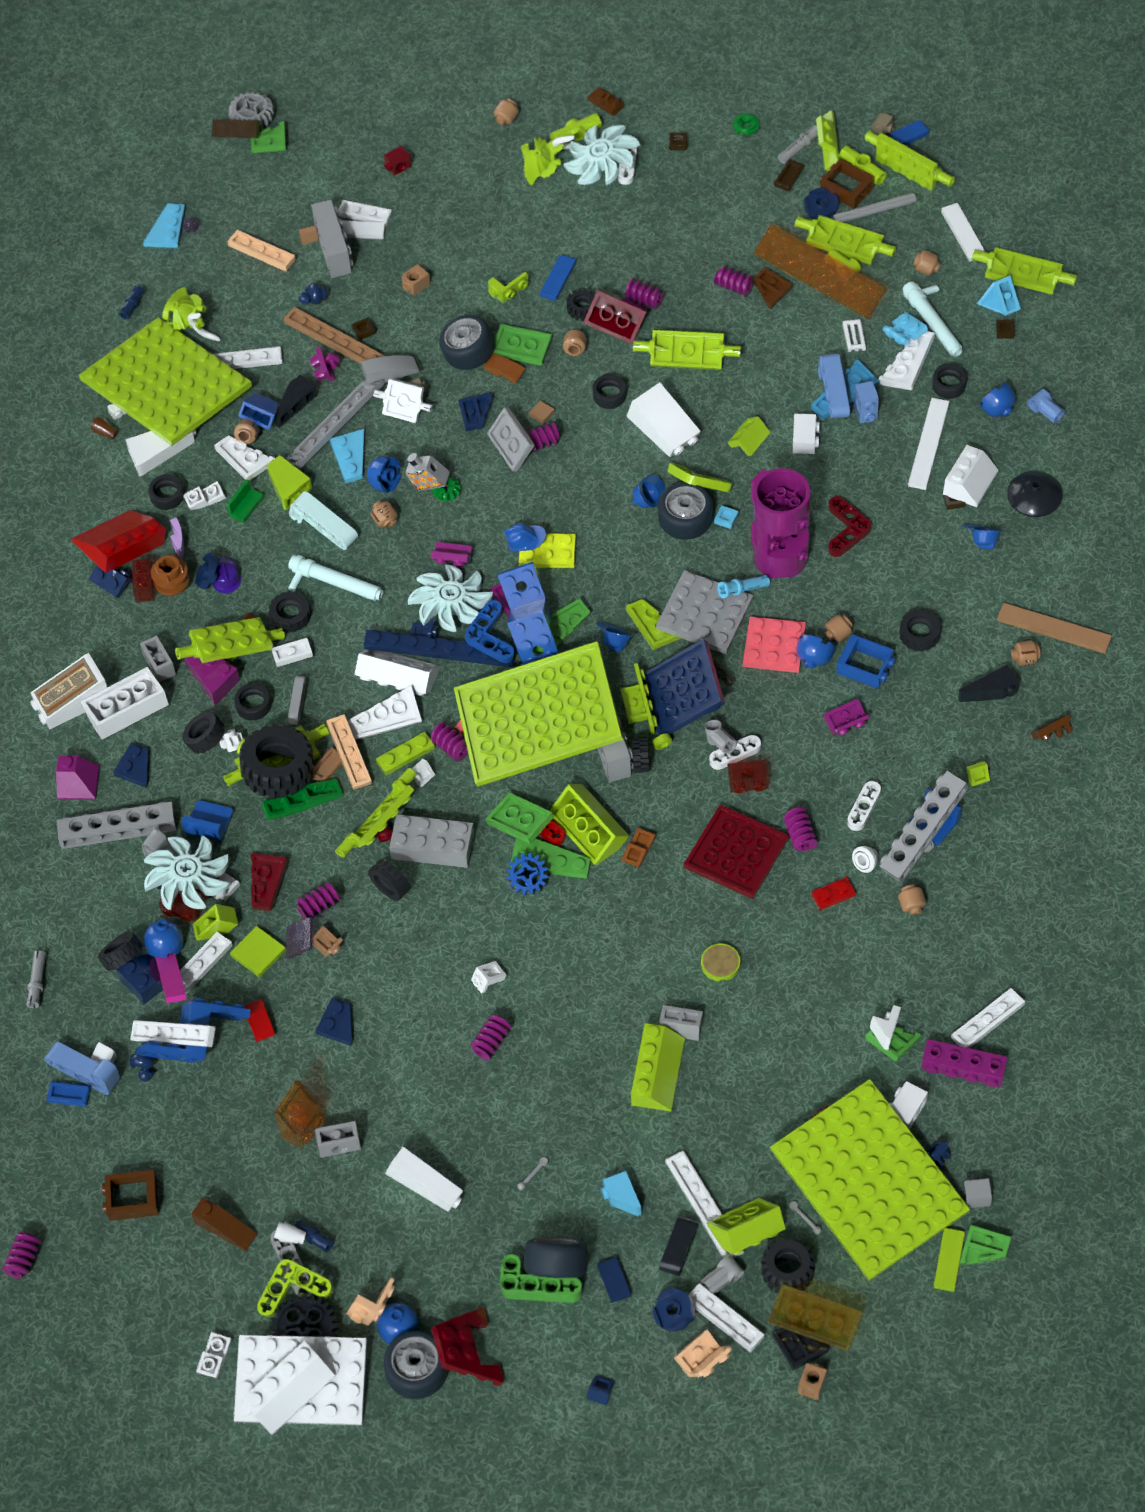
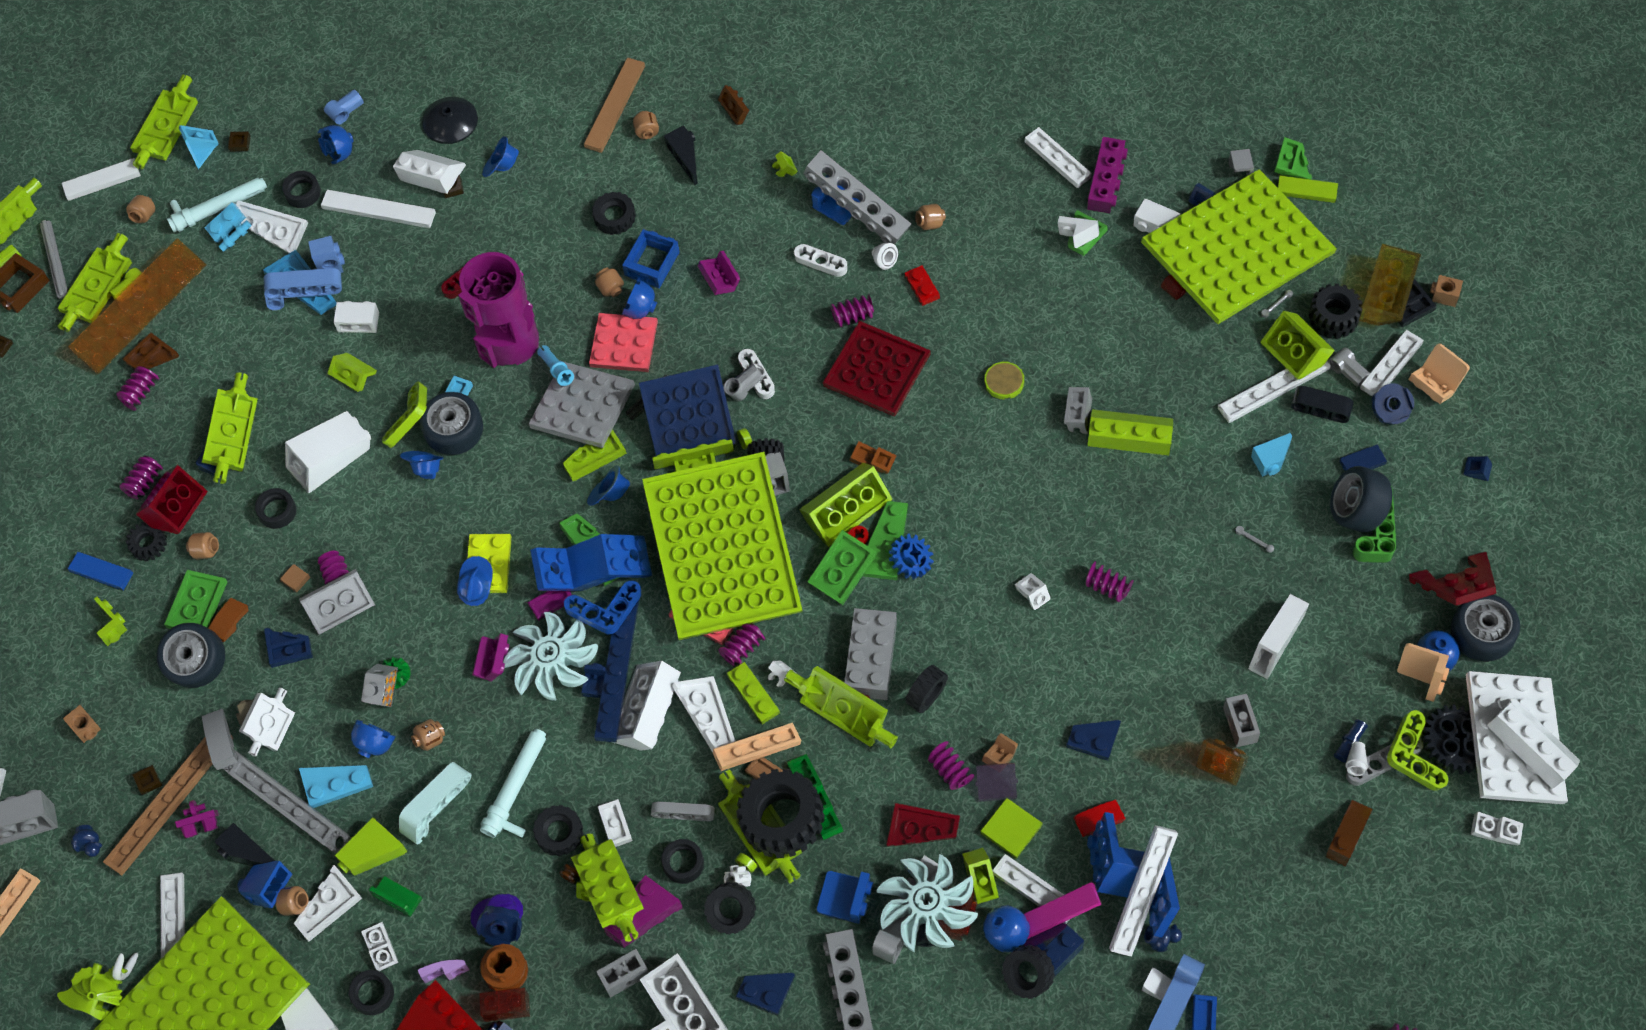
camera: 90 degrees left, 5 degrees up
(131, 1211) = (1323, 909): reddish brown window -> none
(754, 769) = (789, 369): clear red brick -> none
(812, 206) = (43, 317): dark blue plate -> none
(856, 346) = (226, 279): white tile -> none

